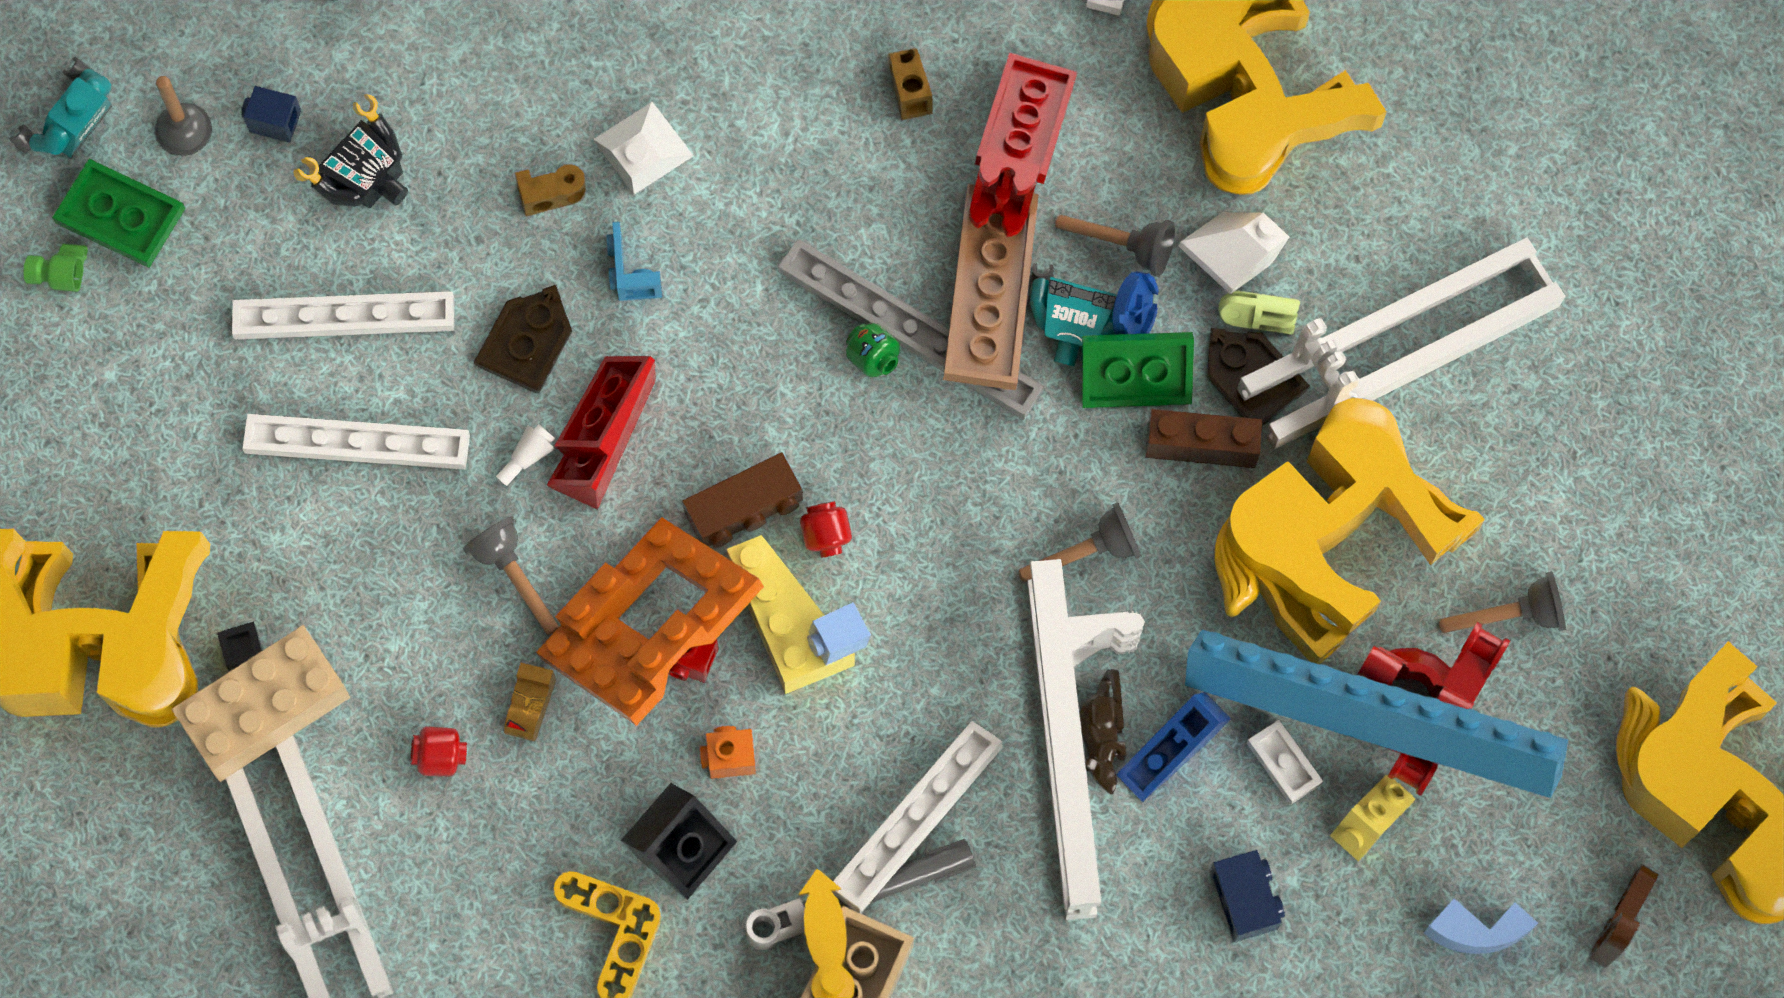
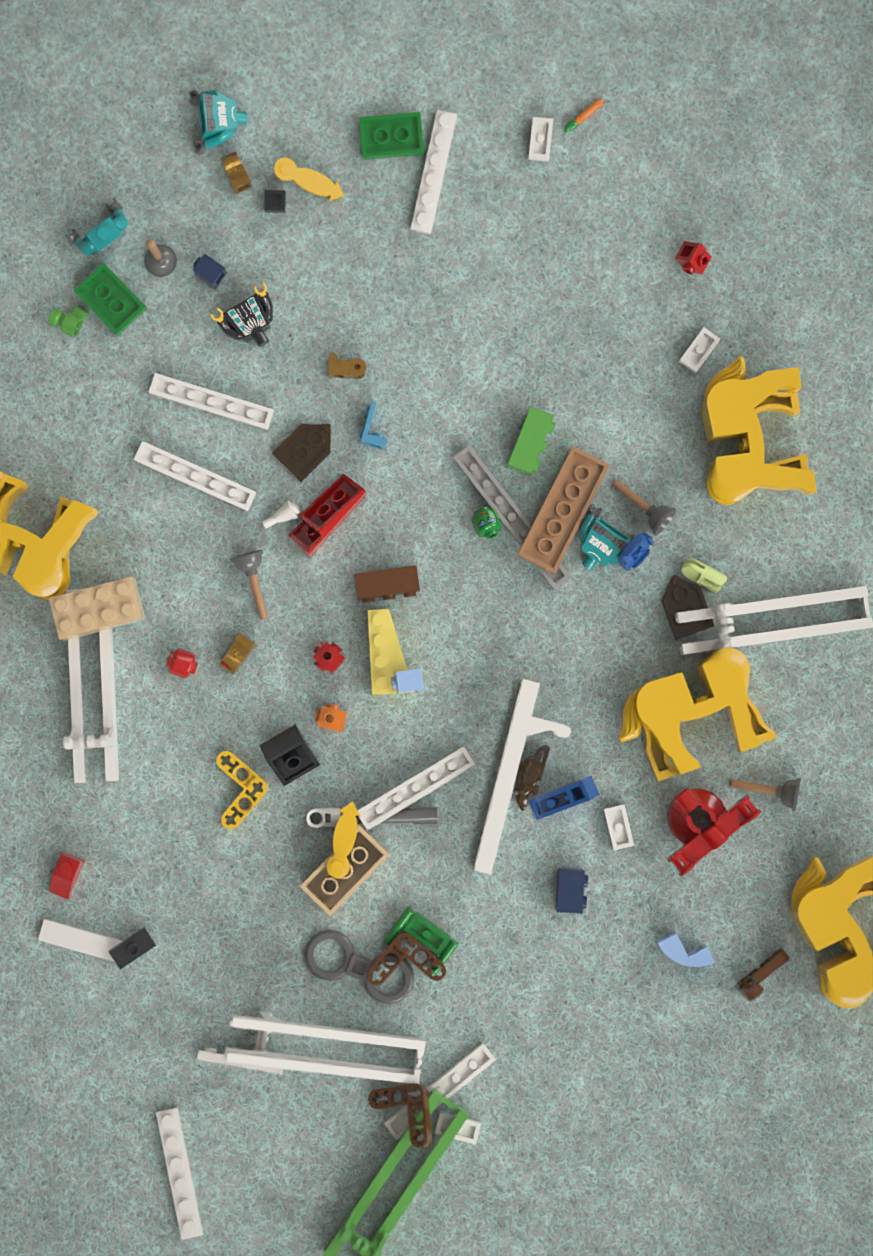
camera: 25 degrees right, 15 degrees up
(239, 644) = (99, 568): black plate -> none
(616, 660) = (286, 646): orange piece -> none
(643, 148) = (405, 359): white slope -> none
(826, 528) = (425, 614): red head -> none
(898, 201) = (531, 441): none -> bright green brick
(910, 84) = (563, 374): pearl gold leg -> none
(1019, 140) = (611, 430): hinge -> none
(1113, 536) = (576, 673): dark grey piece -> none
(1137, 369) = (623, 586): green plate -> none
(1203, 438) = (645, 636): reddish brown brick -> none
(1235, 247) = (703, 534): white slope -> none
(1372, 817) = (652, 874): light yellow bracket -> none
(1377, 713) = (673, 826): dark azure brick -> none

